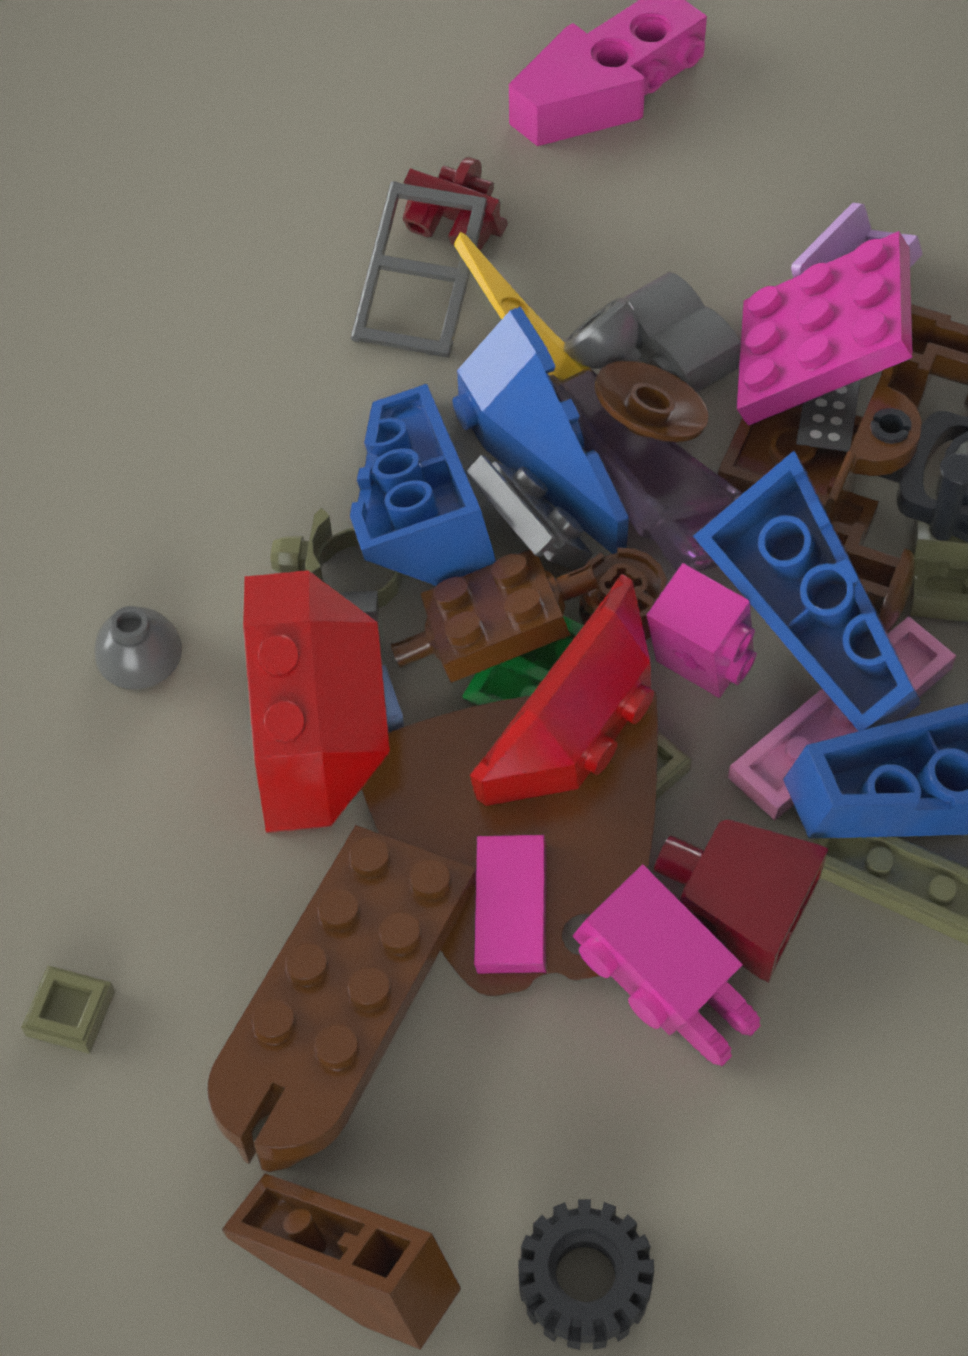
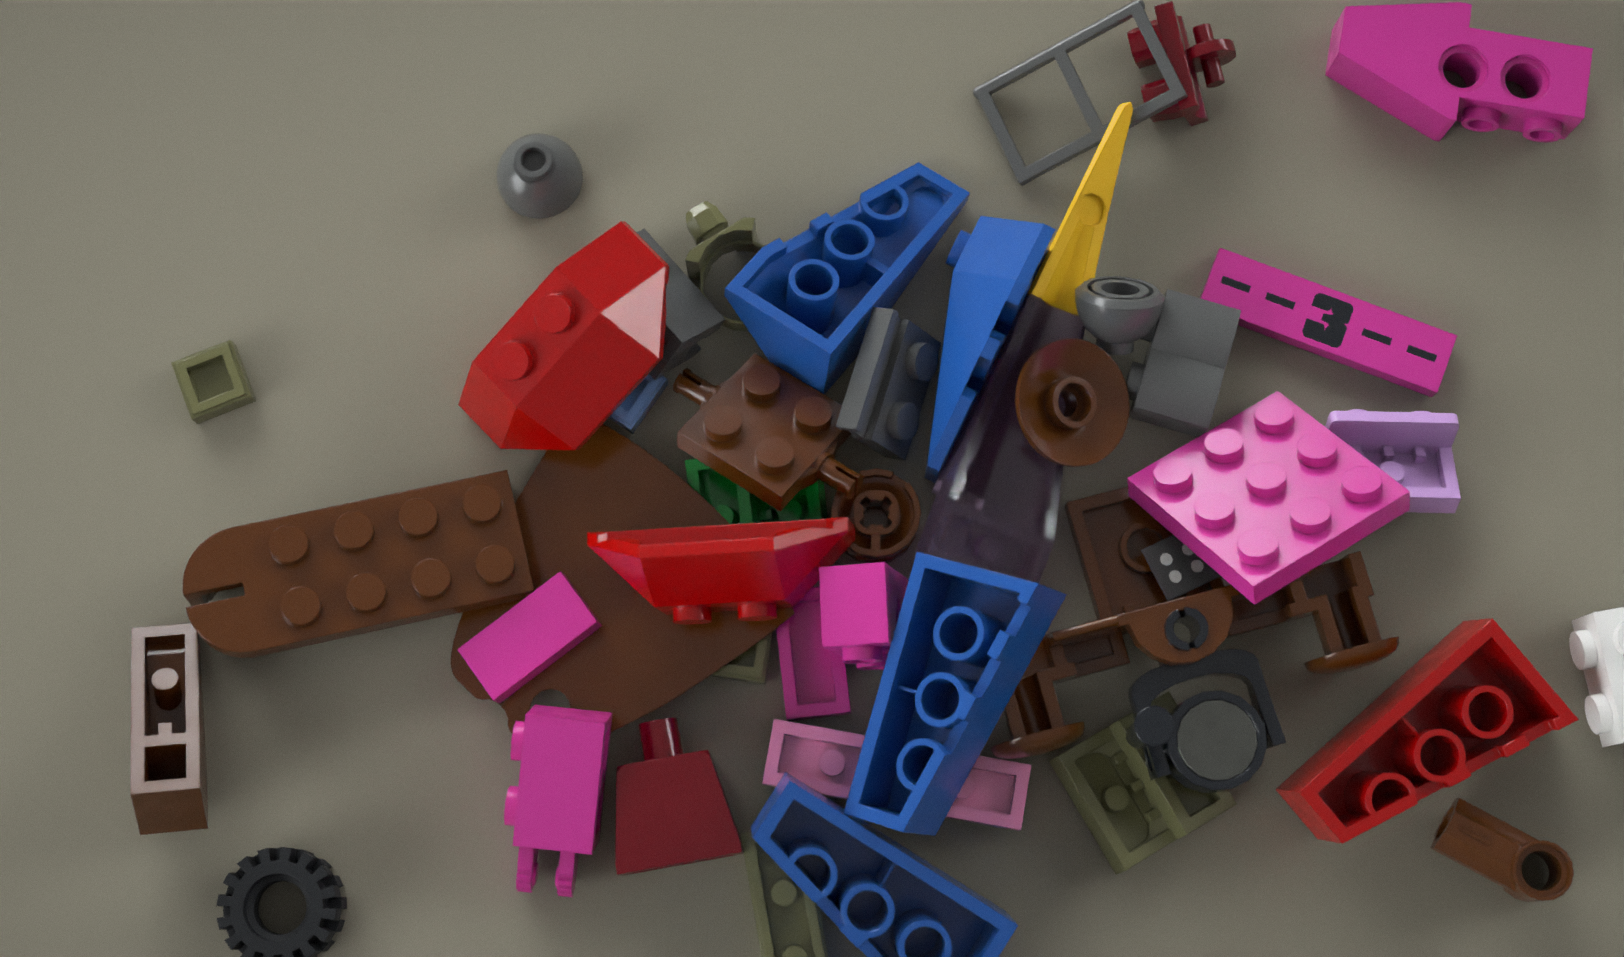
camera: 50 degrees right, 20 degrees up
(703, 717) = (811, 675): none -> dark pink tile
(723, 241) = (1330, 323): none -> dark pink tile

